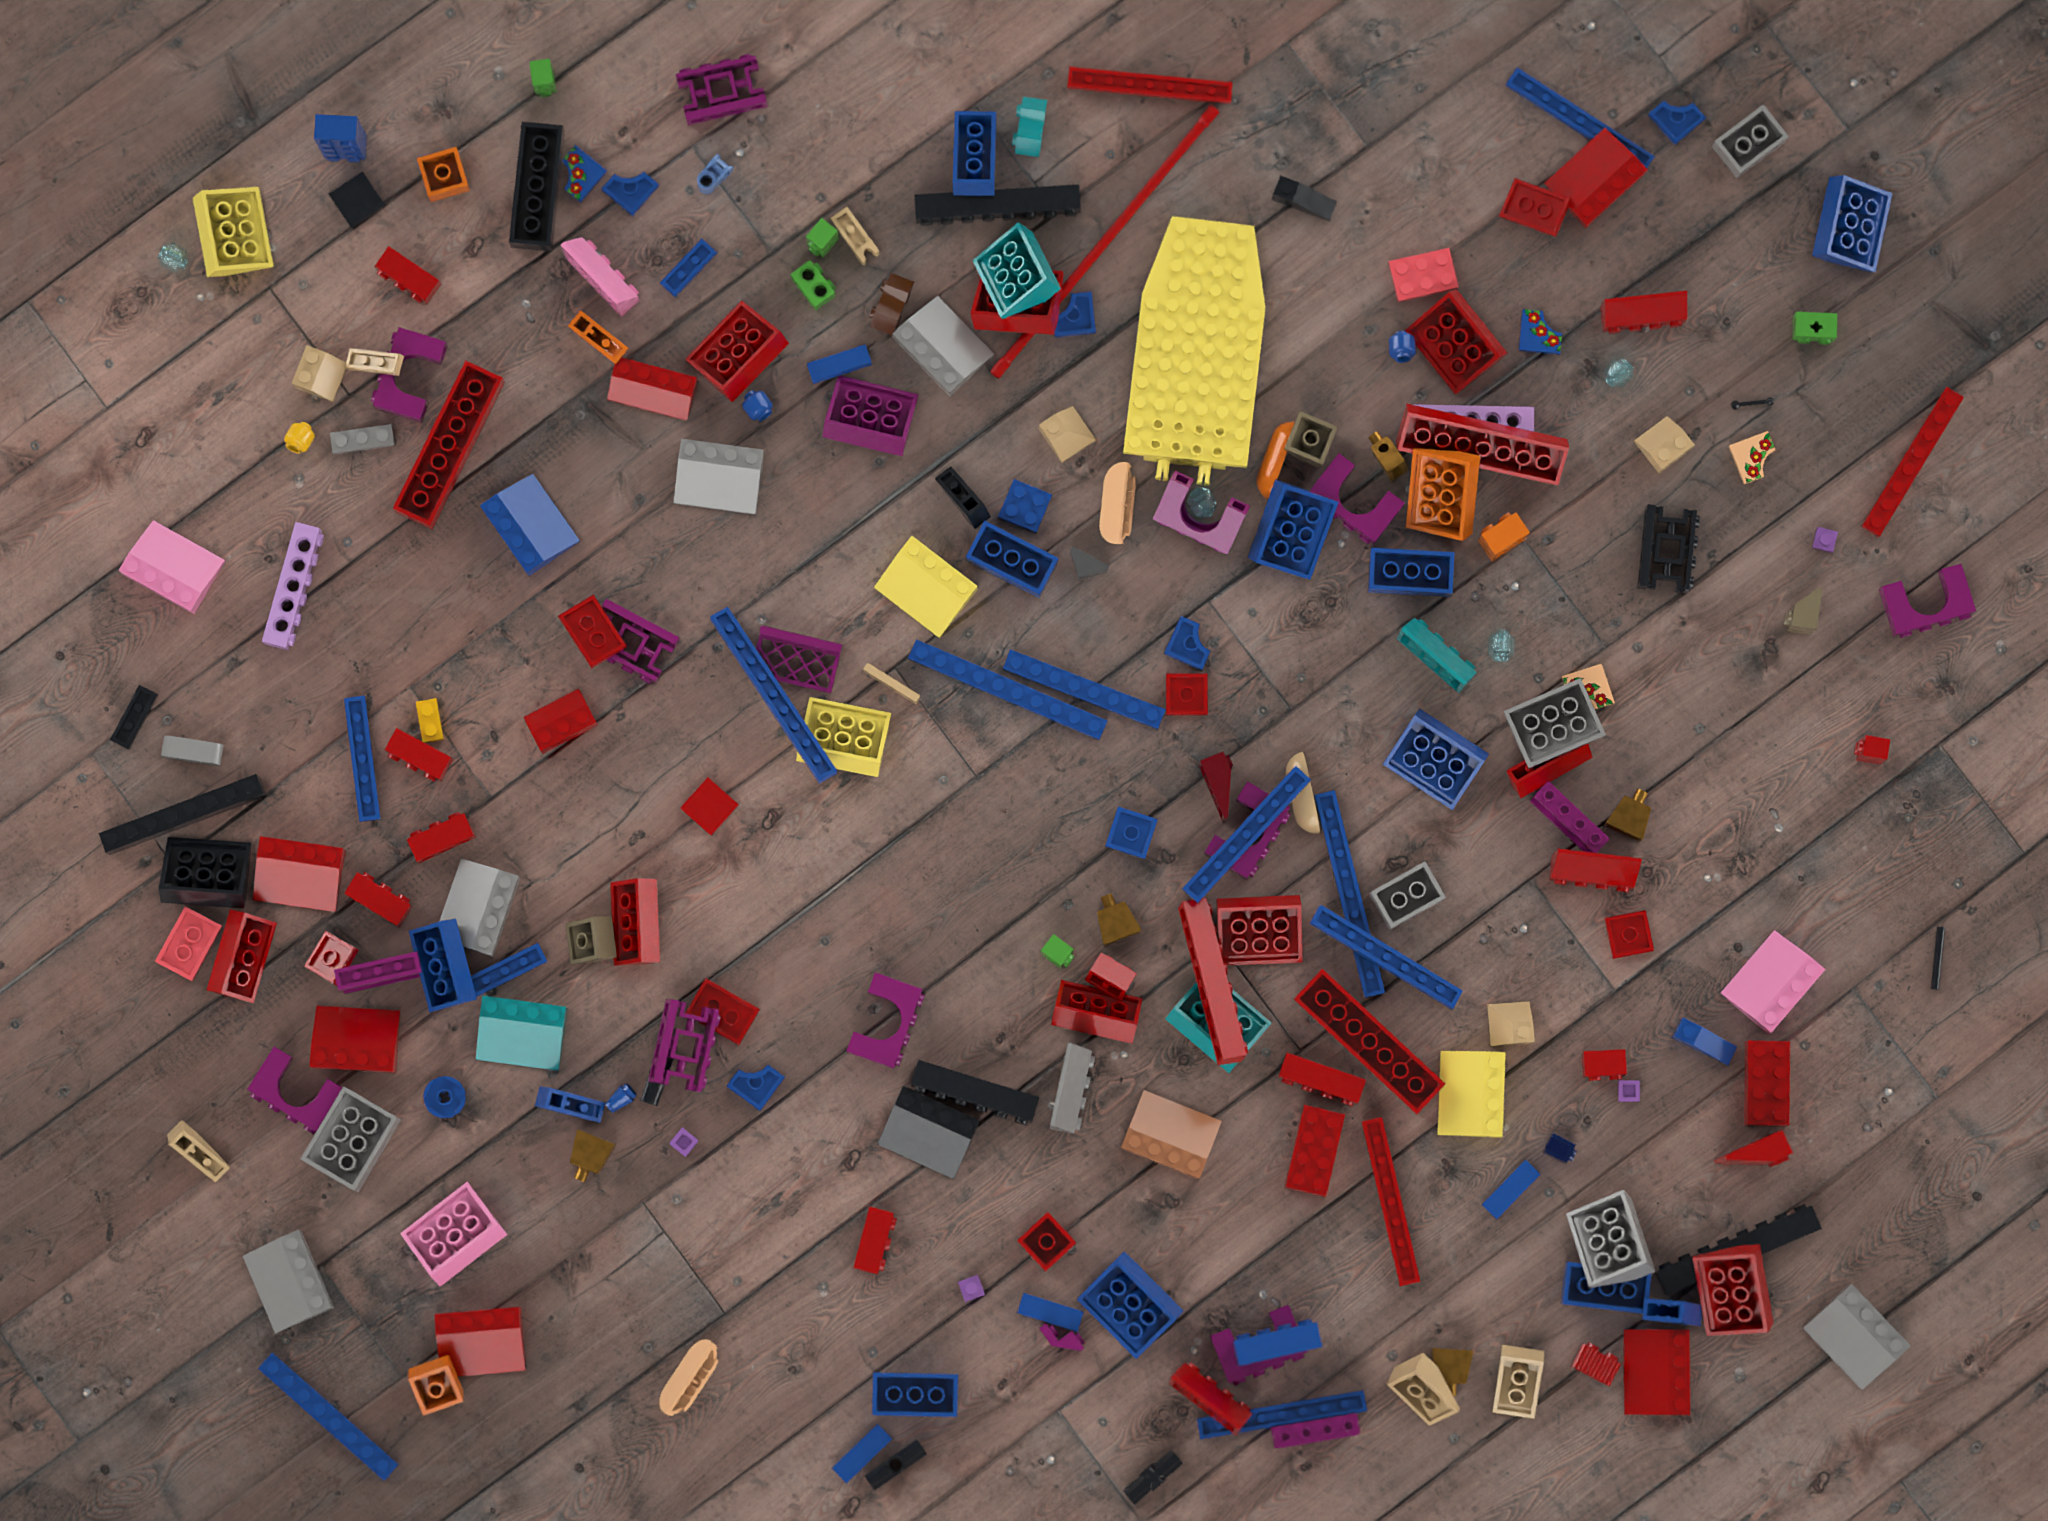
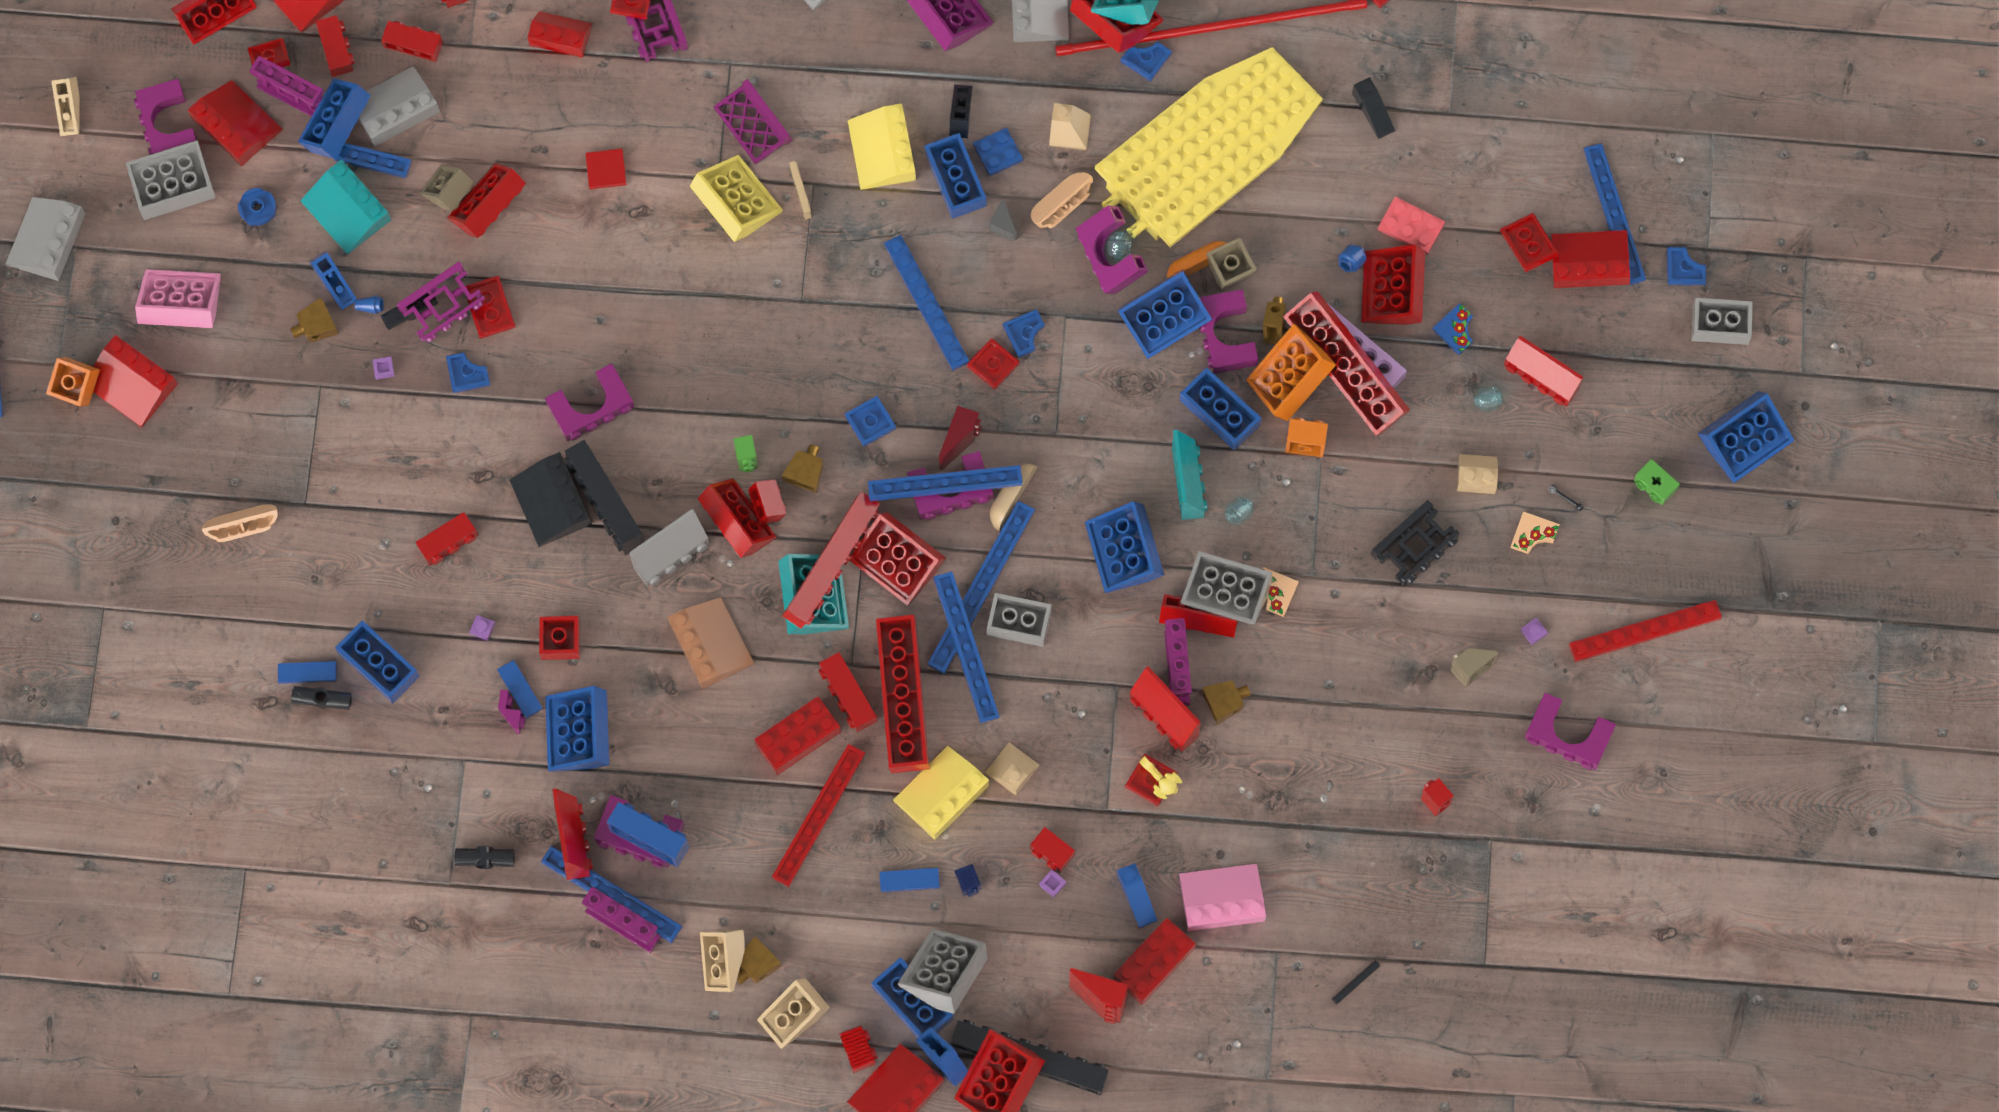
camera: 45 degrees right, 10 degrees down
(773, 695) = (712, 128): blue plate -> none
(1007, 689) = (875, 260): blue plate -> none
(1650, 930) = (1166, 785): none -> light yellow piece

